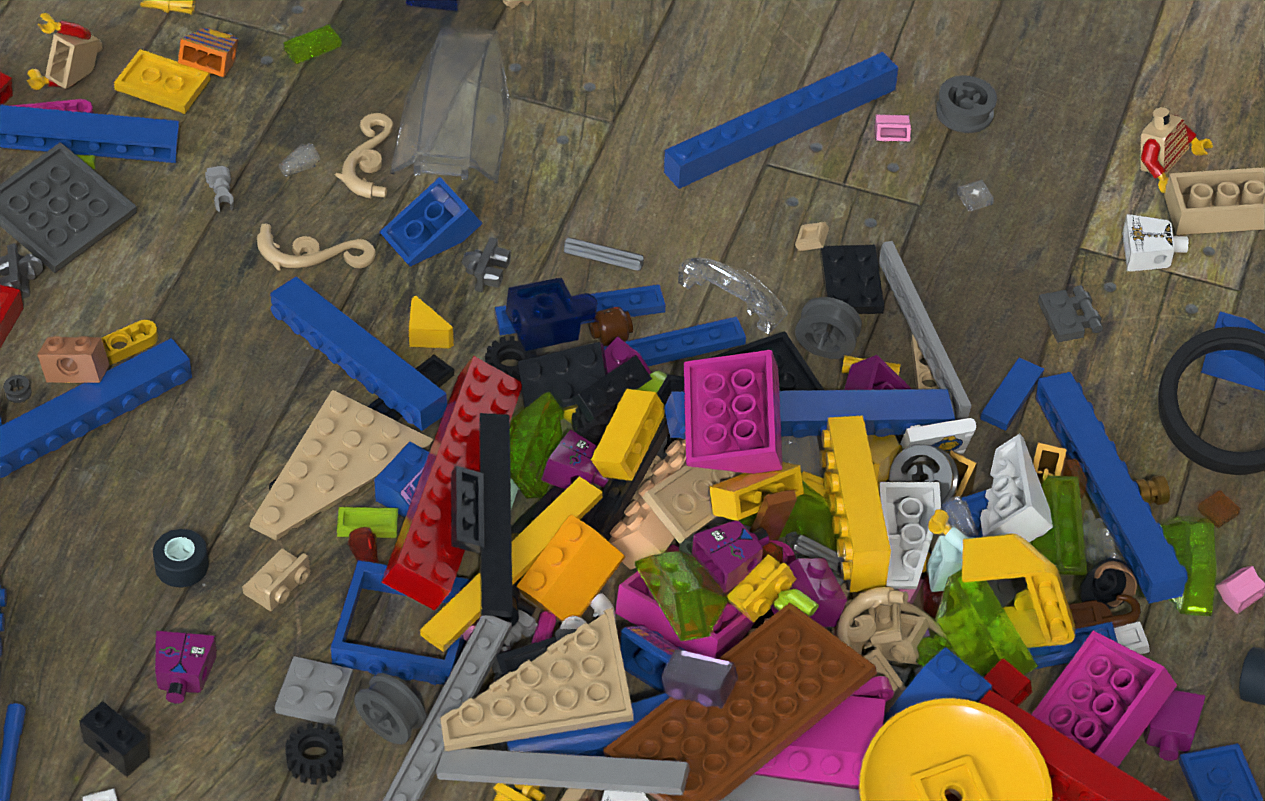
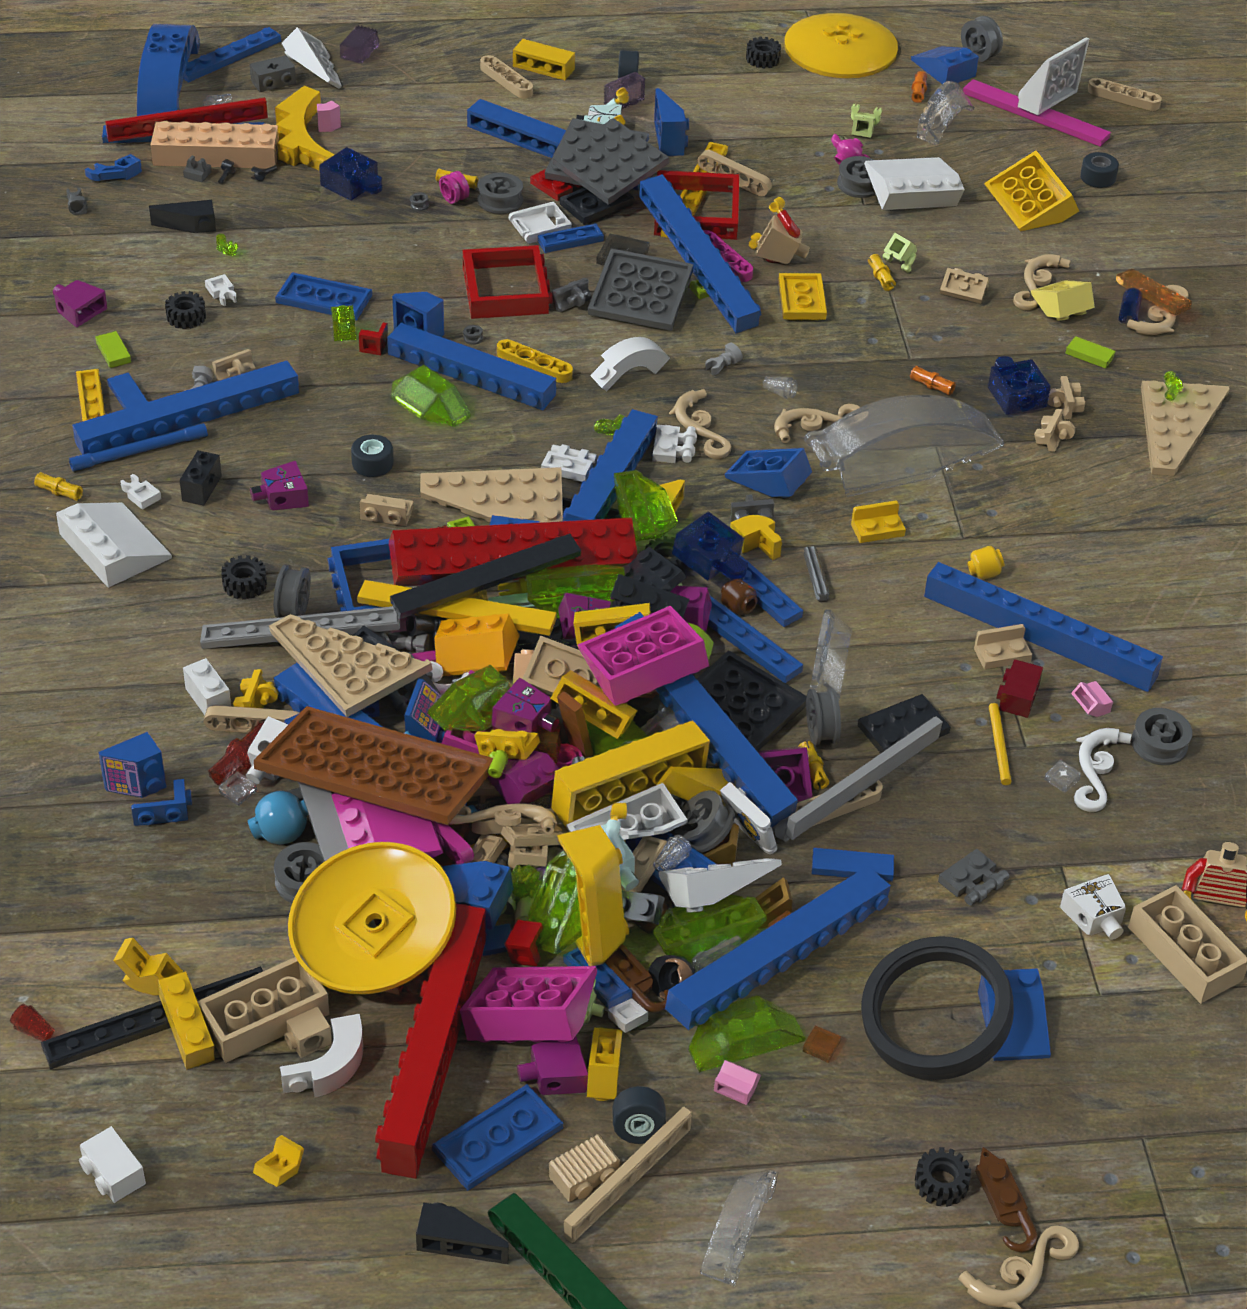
camera: 65 degrees right, 5 degrees down
(73, 359) = (498, 337): nougat brick -> none
(104, 469) = (430, 397): none -> clear neon green wedge
(181, 269) = (627, 355): none -> white arch
(209, 51) = (846, 304): orange torso -> none
(267, 326) = (608, 426): none -> clear neon green arm
(308, 391) = (574, 463): none -> white plate
(312, 44) = (904, 354): clear neon green plate -> none
(314, 691) = (303, 554): light grey plate -> none
(336, 293) = (667, 441): none -> white plate
(370, 40) = (932, 380): none -> orange pin
(446, 344) = (645, 504): none -> clear neon green wedge
(467, 509) = (471, 554): black plate -> none
(522, 270) = (758, 532): none -> yellow brick
(559, 176) = (877, 522): none -> yellow bracket
(564, 771) = (275, 693): light grey tile -> none
(671, 119) = (986, 562): none -> yellow head
(699, 678) = (385, 726): clear purple brick -> none
(790, 162) = (1001, 646): none -> tan bracket
(812, 236) = (928, 685): tan tile -> none
(854, 171) = (1019, 688): none -> dark red brick
(911, 220) = (1000, 744): none -> yellow bar
(974, 171) = (1092, 768): none -> white plant
(1155, 490) = (802, 985): pearl gold wheel -> none
(1198, 678) = (604, 1064): none -> yellow slope

